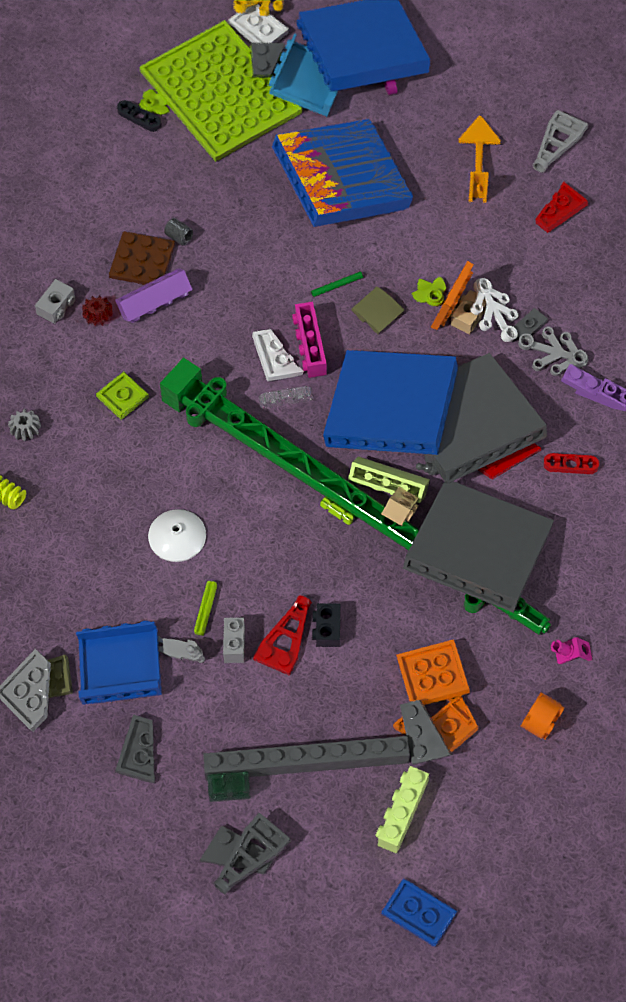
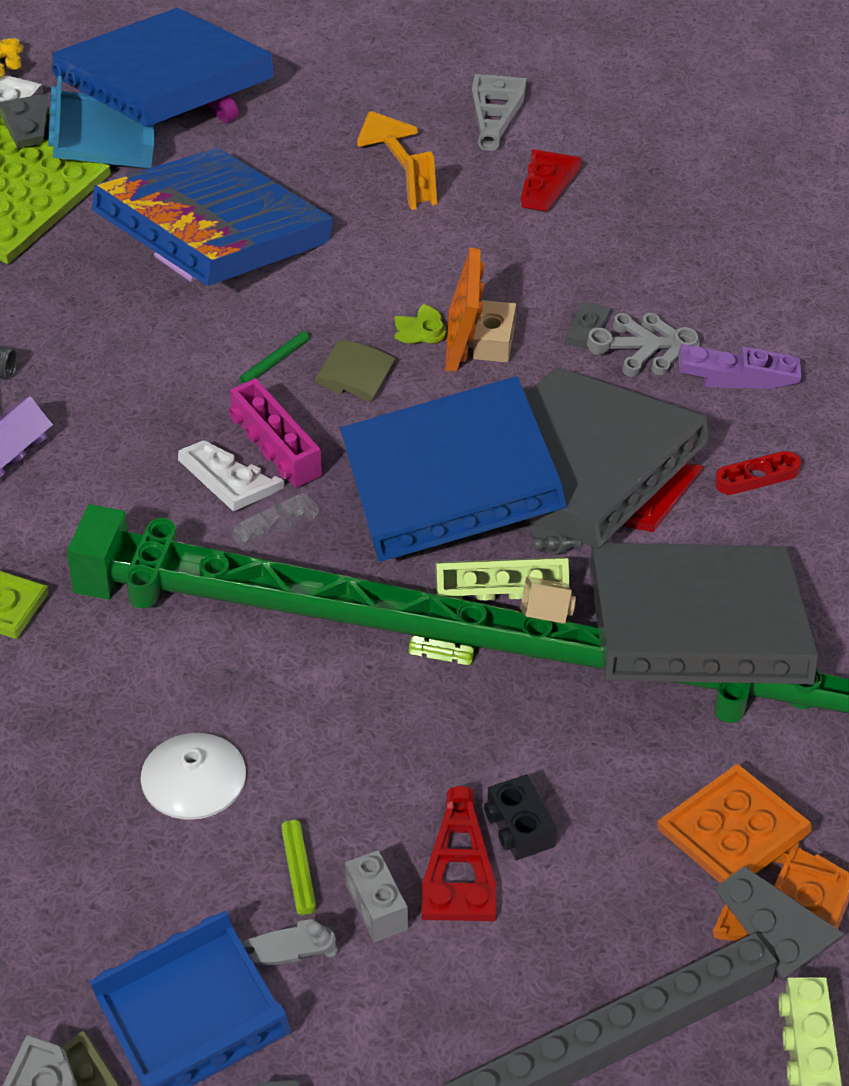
camera: 25 degrees left, 15 degrees down
(484, 291) = (530, 312): white plant -> none

